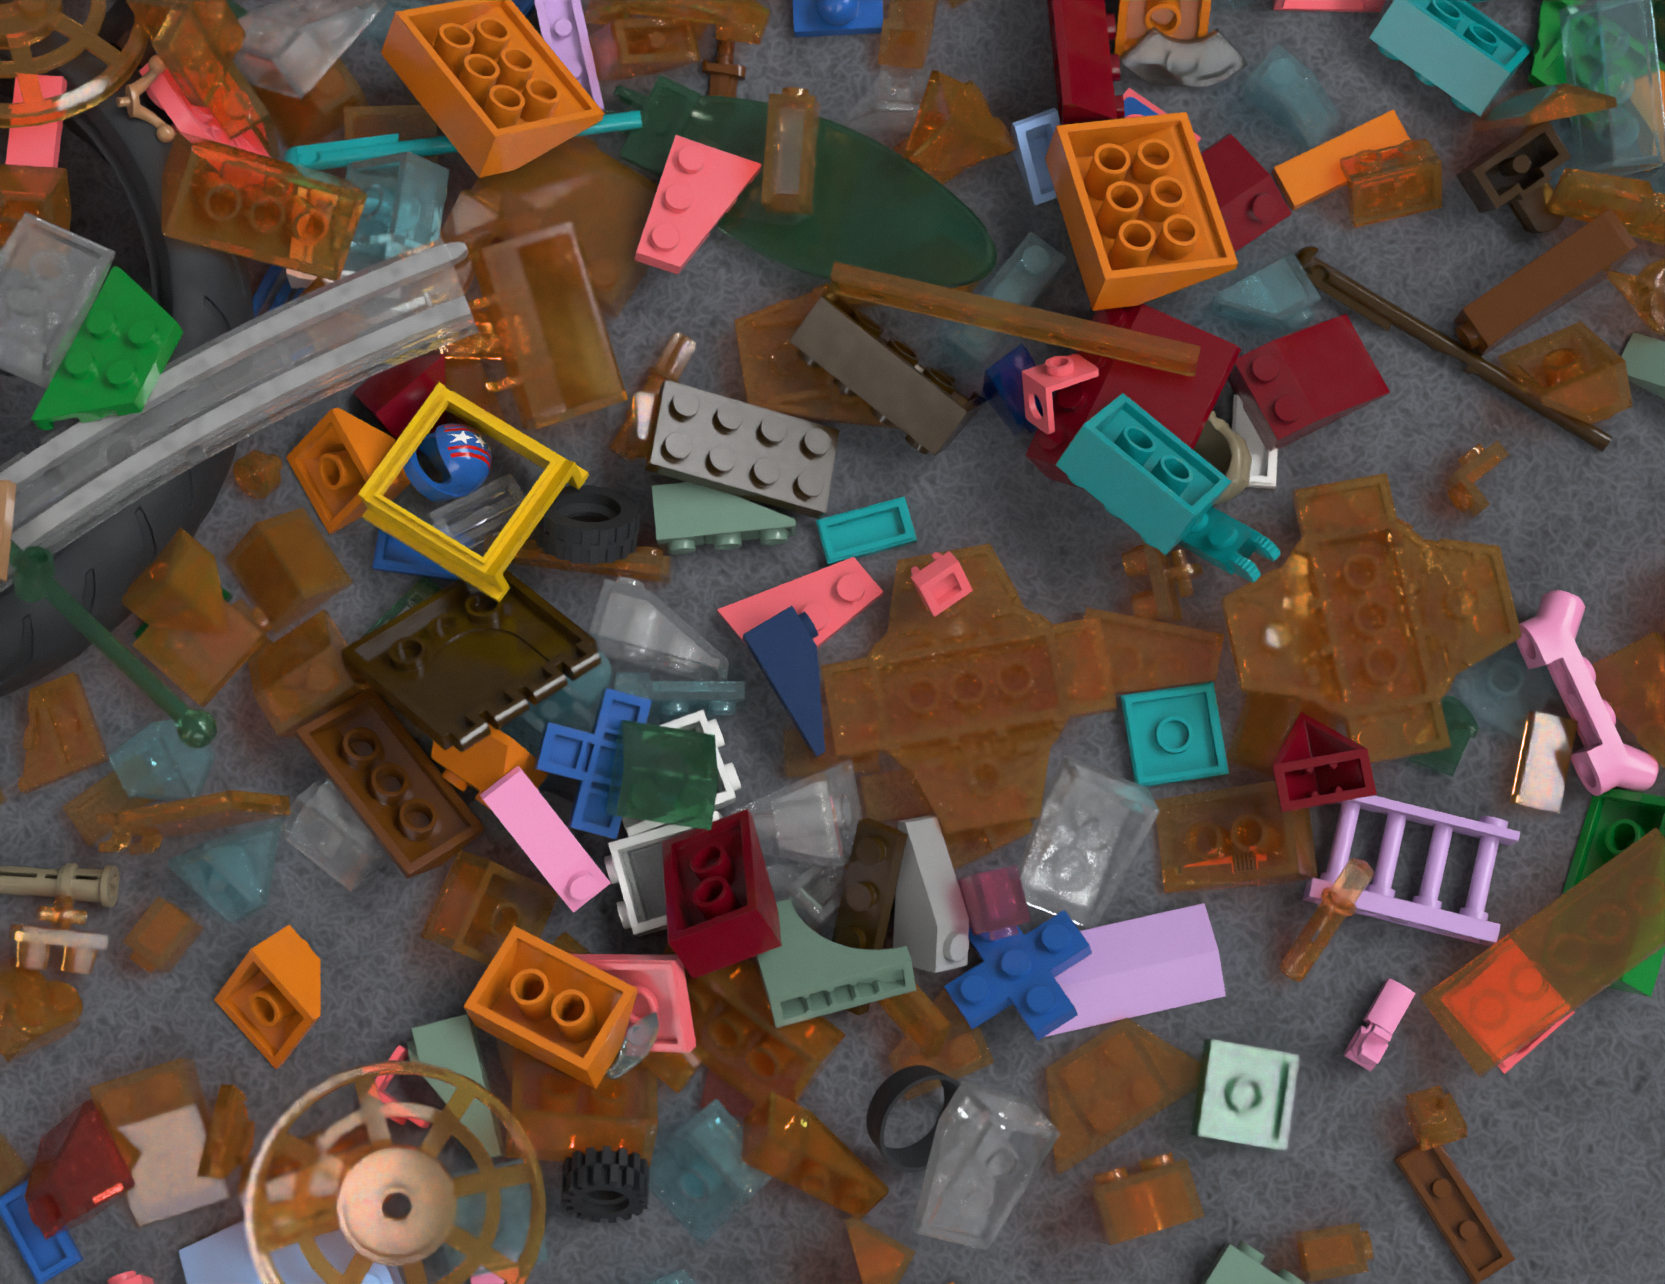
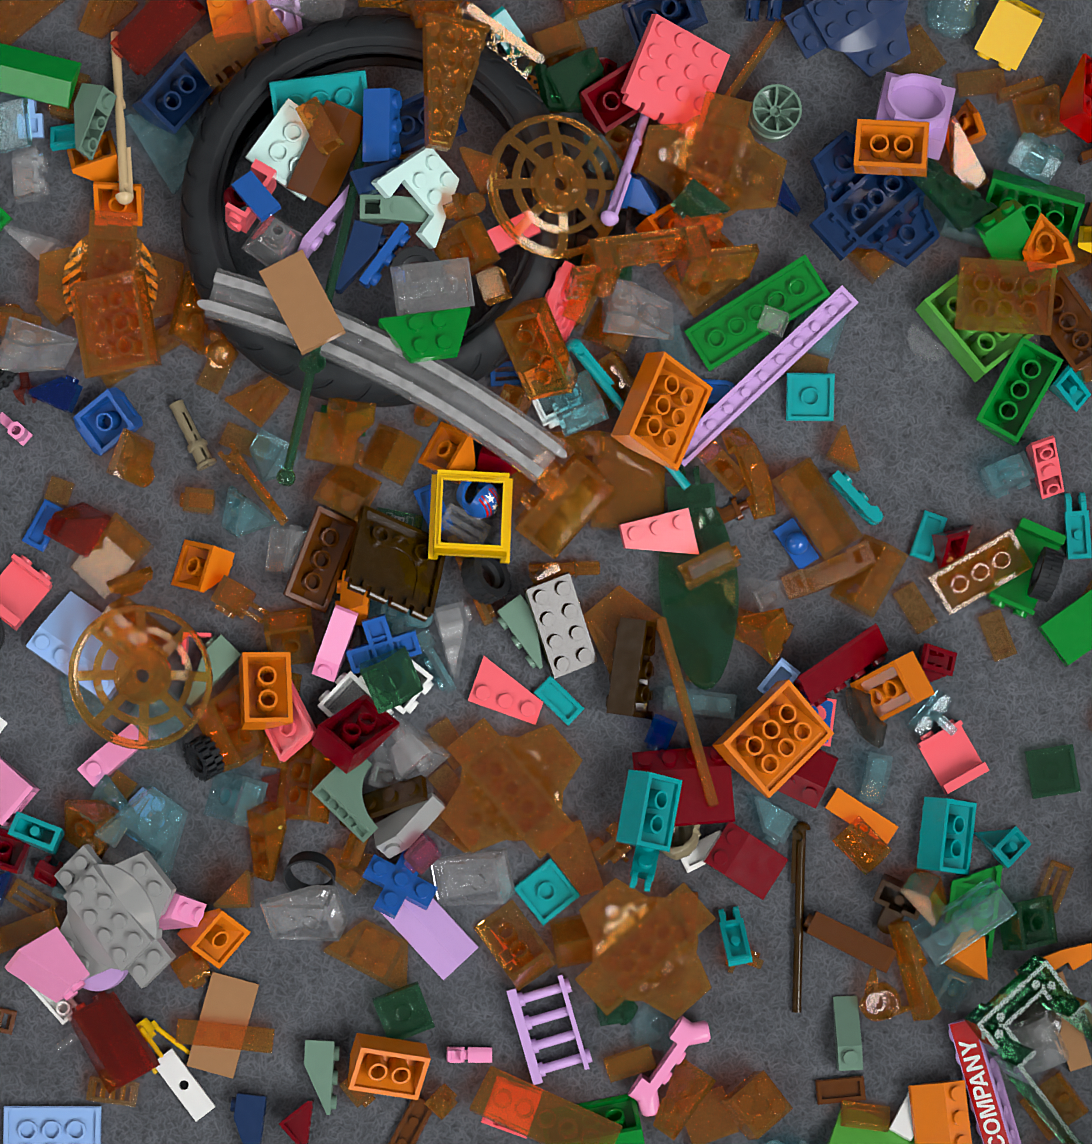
camera: 55 degrees right, 5 degrees up
(79, 946) = (173, 467): clear orange hips -> none
(103, 205) = (493, 285): none -> clear orange brick
(164, 132) = (546, 273): medium nougat piece -> none
(366, 970) = (235, 599): none -> clear orange brick
(636, 1045) = (269, 735): clear light blue bar -> none
(790, 664) = (475, 703): dark blue slope -> none
(941, 582) = (549, 748): coral tile -> none
(1048, 377) = (671, 745): coral bracket -> none
(1143, 1200) = (331, 993): clear orange brick -> none
(1320, 767) = (563, 962): dark red slope -> none
(1325, 1175) = (387, 1066): none -> orange slope
(1335, 906) = (508, 1005): clear orange axle -> none
(1434, 464) = (735, 938): none -> teal hinge
(1572, 373) = (816, 976): clear orange slope -> none

